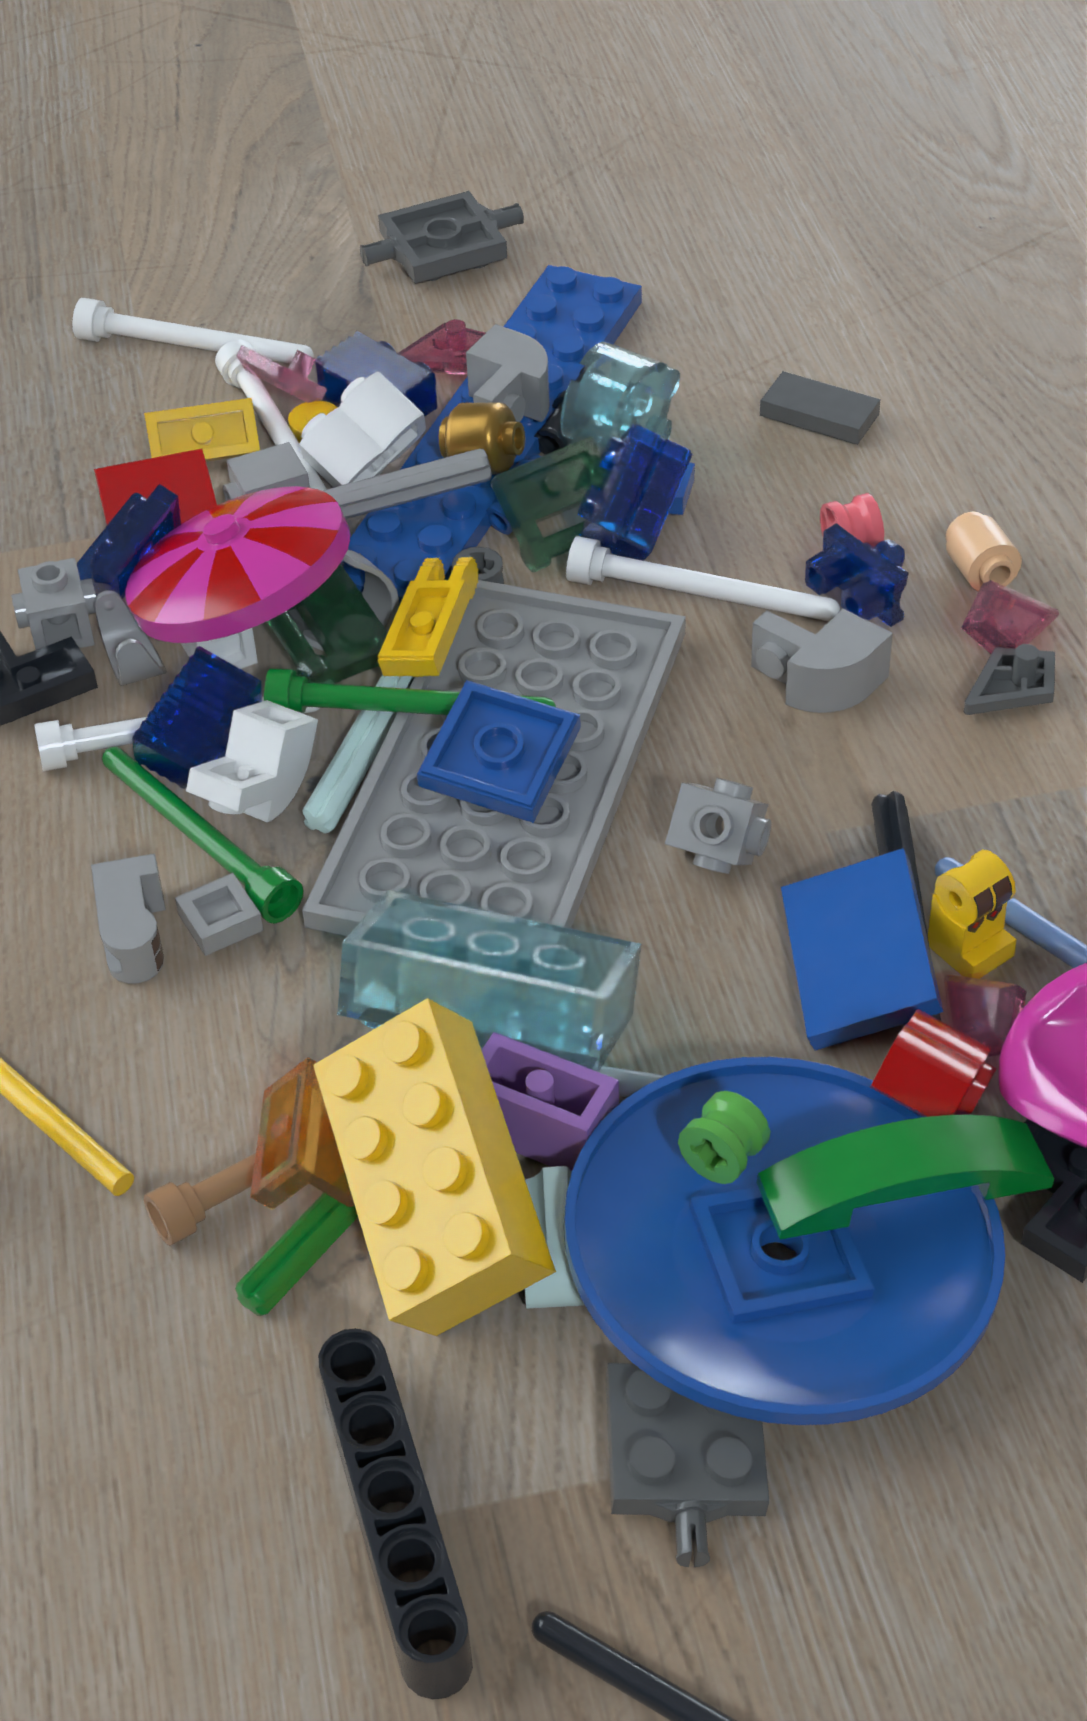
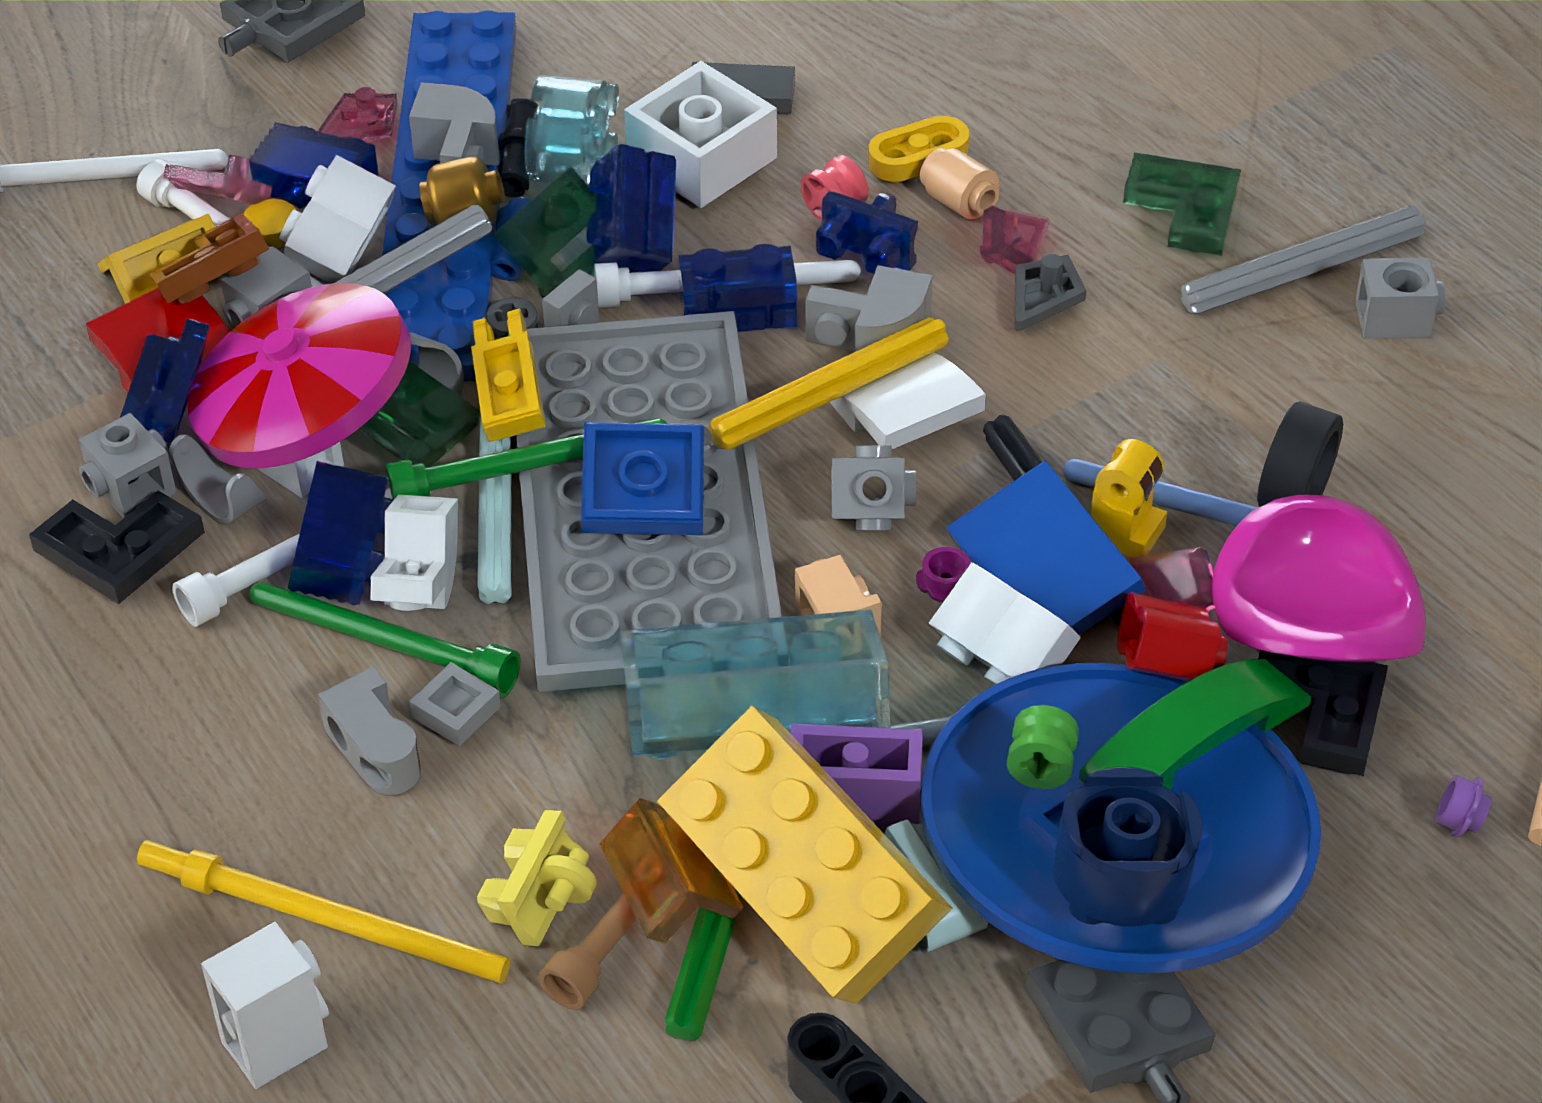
camera: 25 degrees left, 0 degrees up
(196, 1106) = (544, 877): none -> light yellow hips
(241, 434) = (223, 249): none -> dark orange plate
(536, 567) = (572, 302): none -> light grey plate
(623, 915) = (831, 588): none -> light nougat brick
(713, 593) = (751, 282): none -> clear blue brick
(735, 710) = (828, 383): none -> yellow axle
(741, 1271) = (1126, 848): none -> dark blue brick
(747, 439) = (710, 128): none -> white brick
(755, 935) = (941, 571): none -> magenta plate
(771, 1003) = (1000, 628): none -> white brick
(812, 750) = (912, 401): none -> white slope
(933, 506) = (902, 151): none -> yellow plate

